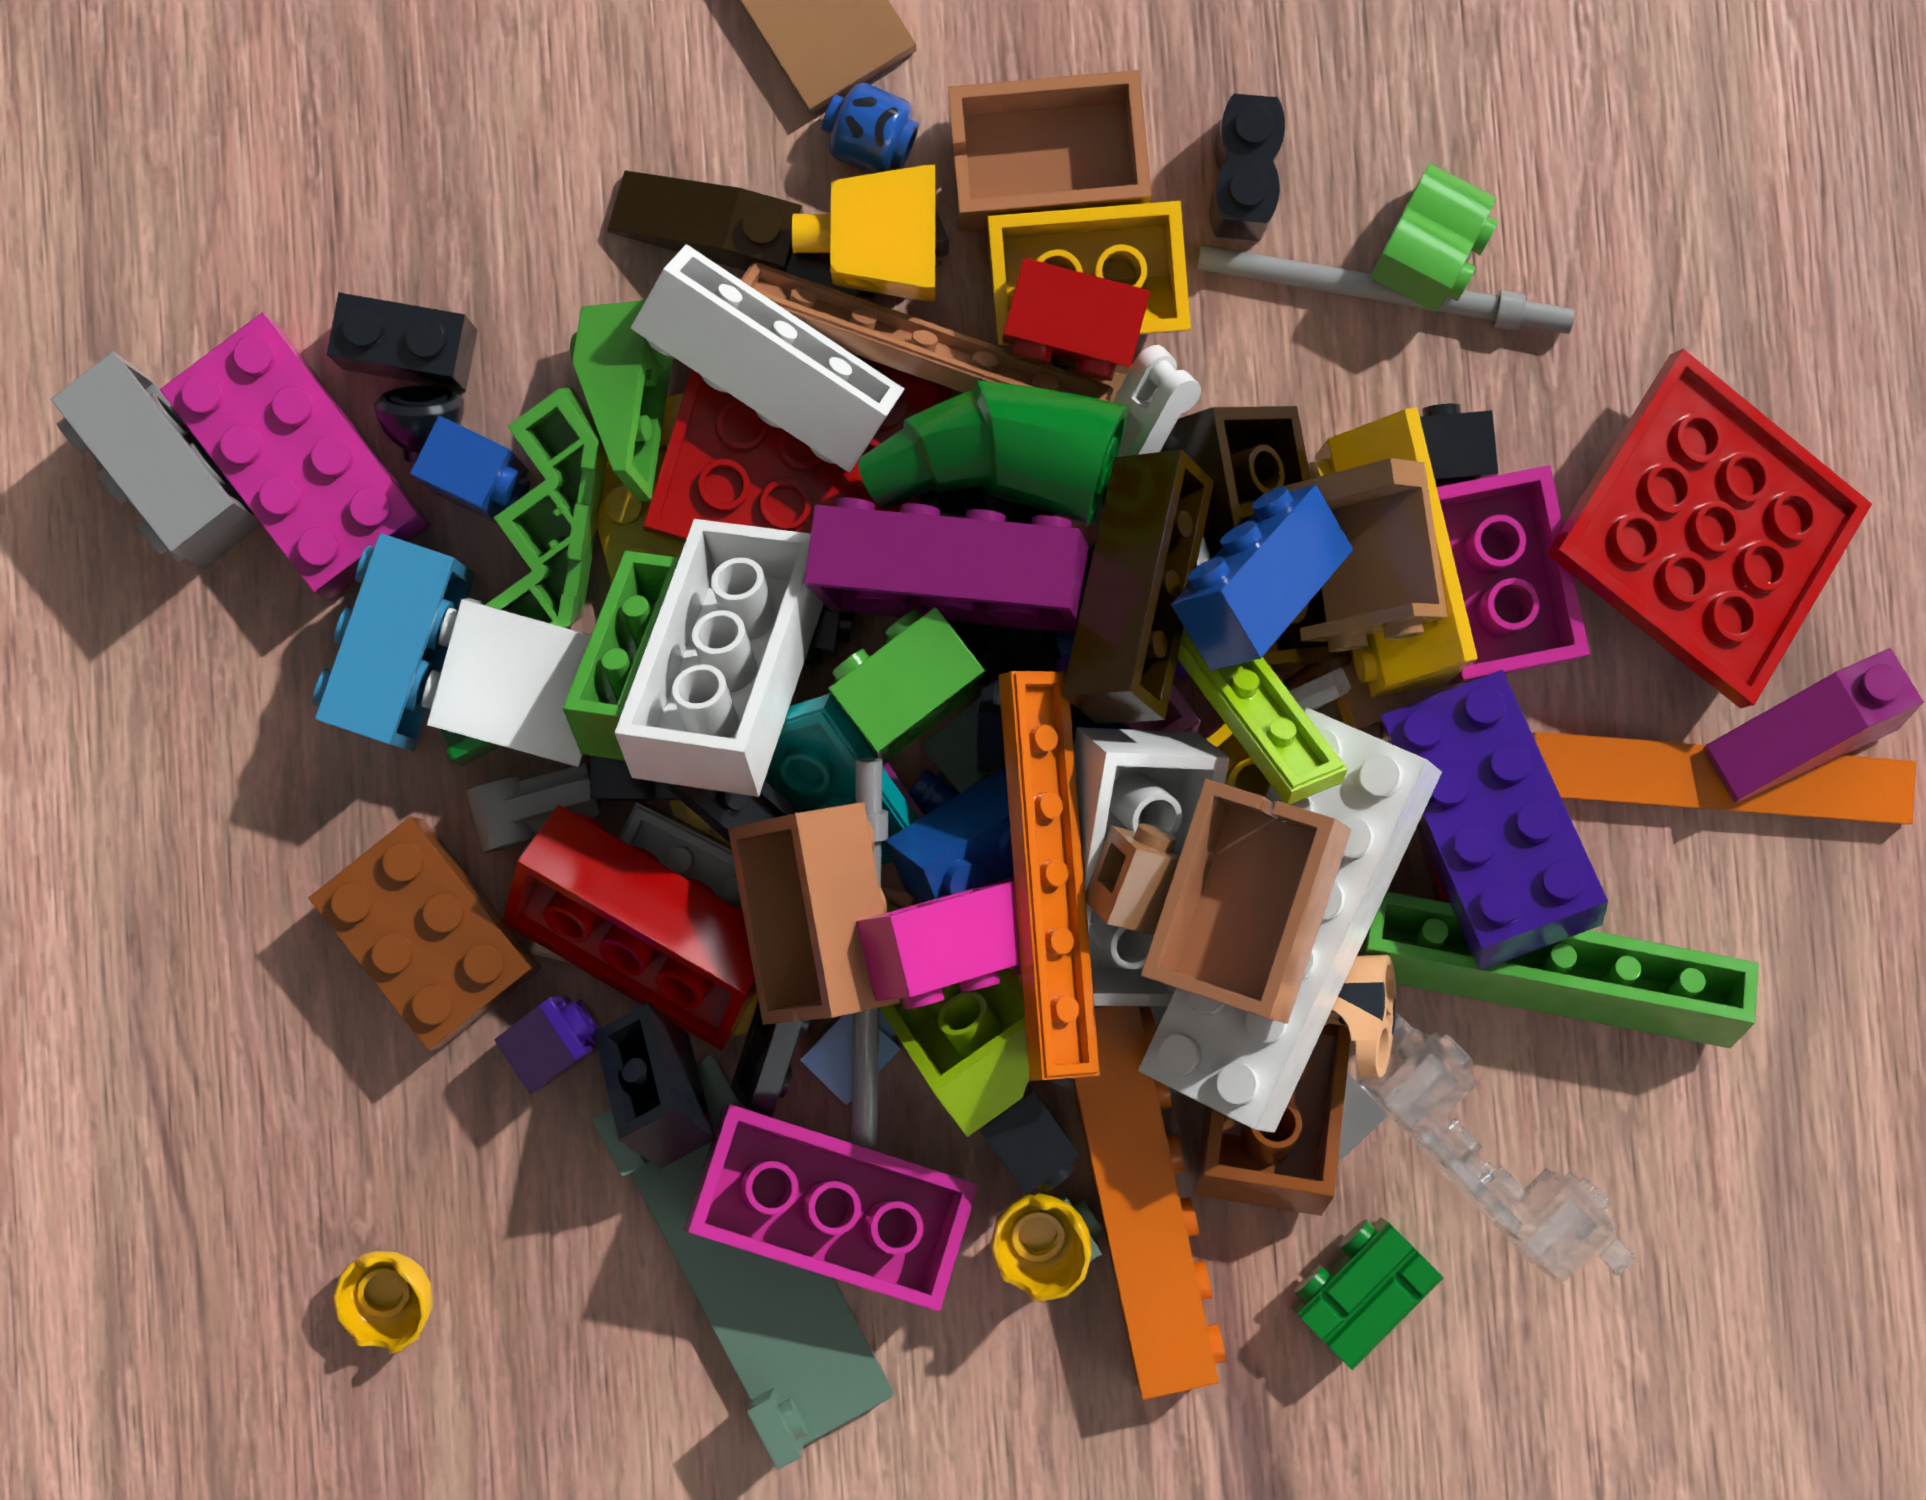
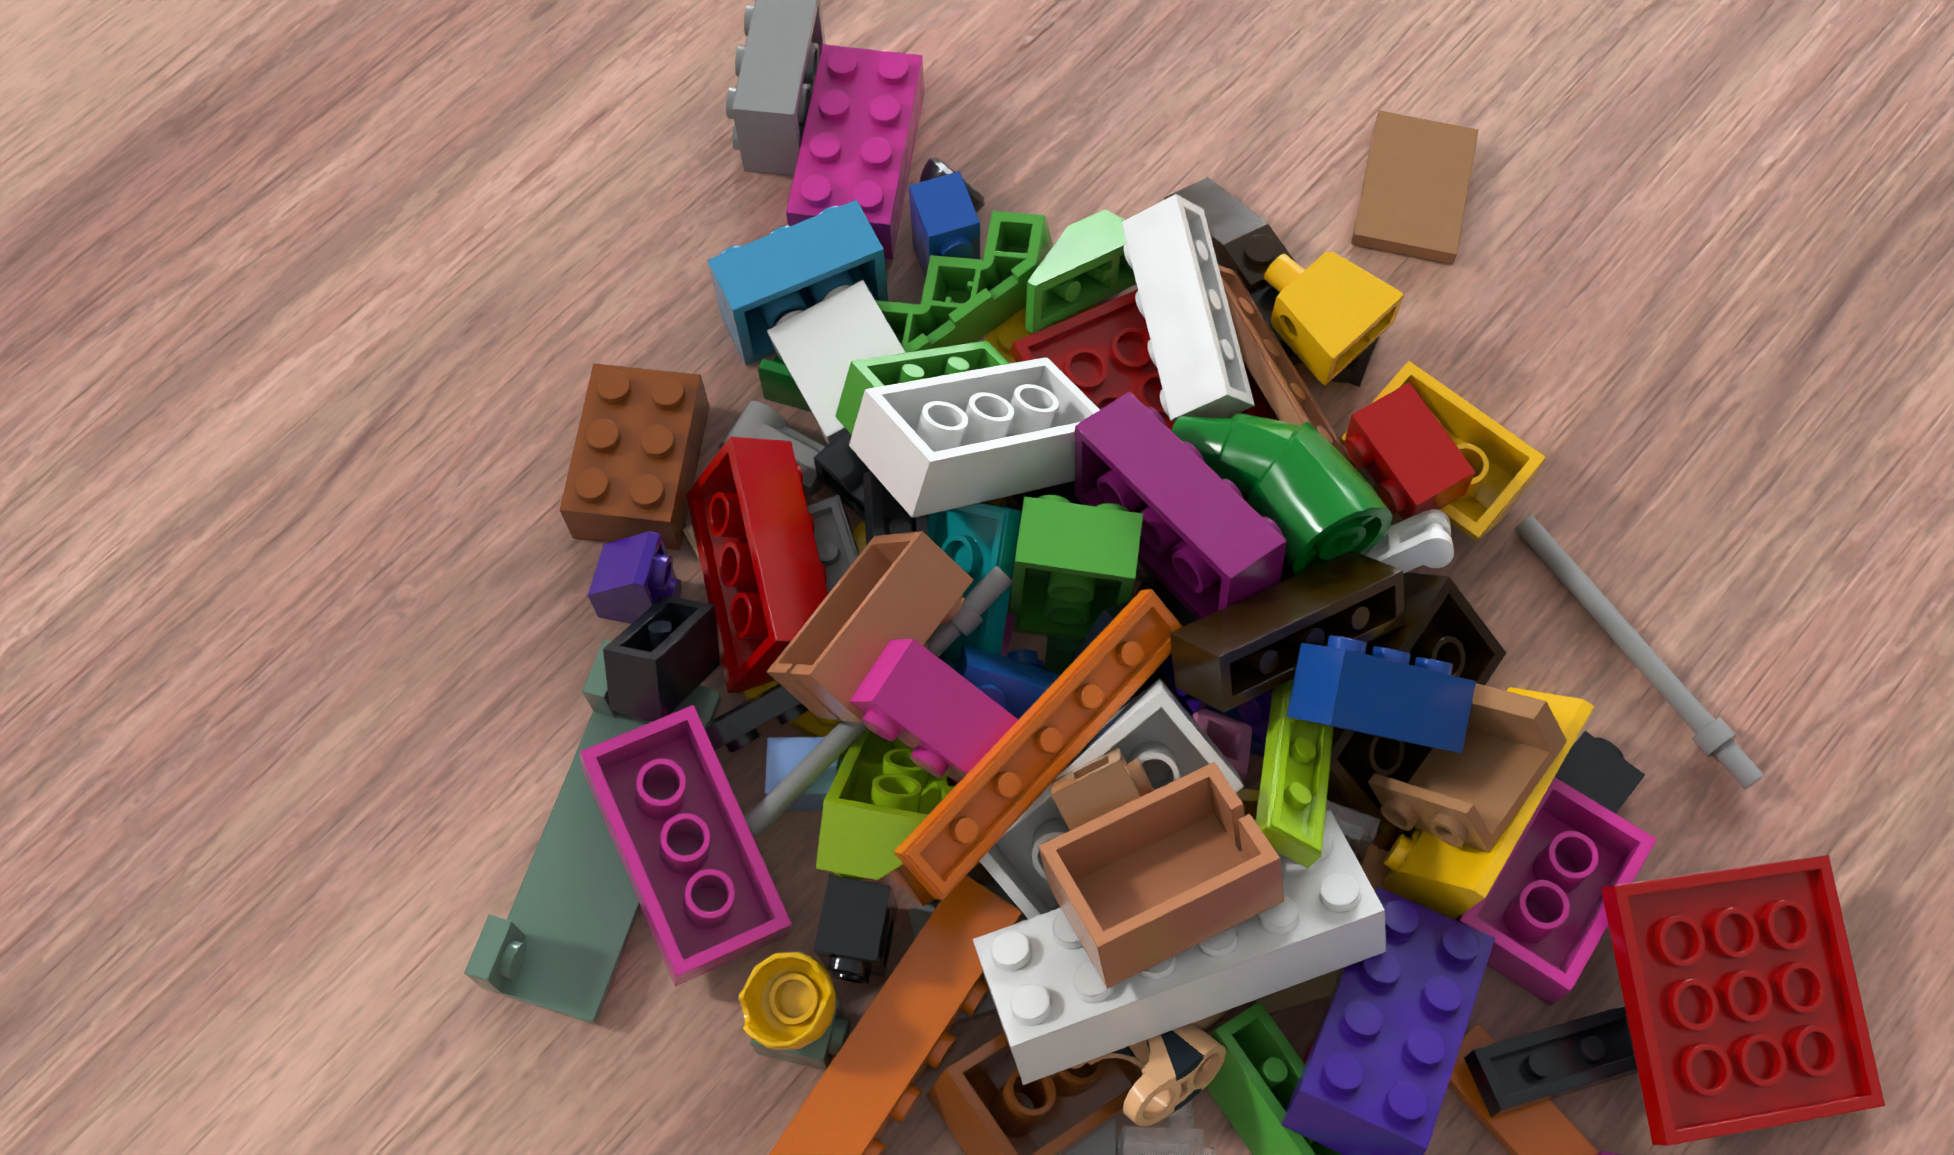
camera: 50 degrees right, 20 degrees down
(383, 1300) = (369, 636): yellow hair -> none
(402, 341) = (983, 145): black brick -> none
(870, 129) = (1389, 261): blue head -> none
(1048, 145) = (1490, 358): nougat piece -> none
(1245, 157) = (1608, 492): black brick -> none
(1434, 239) = (1702, 640): bright green brick -> none
(1616, 713) = (1553, 1061): none -> black plate

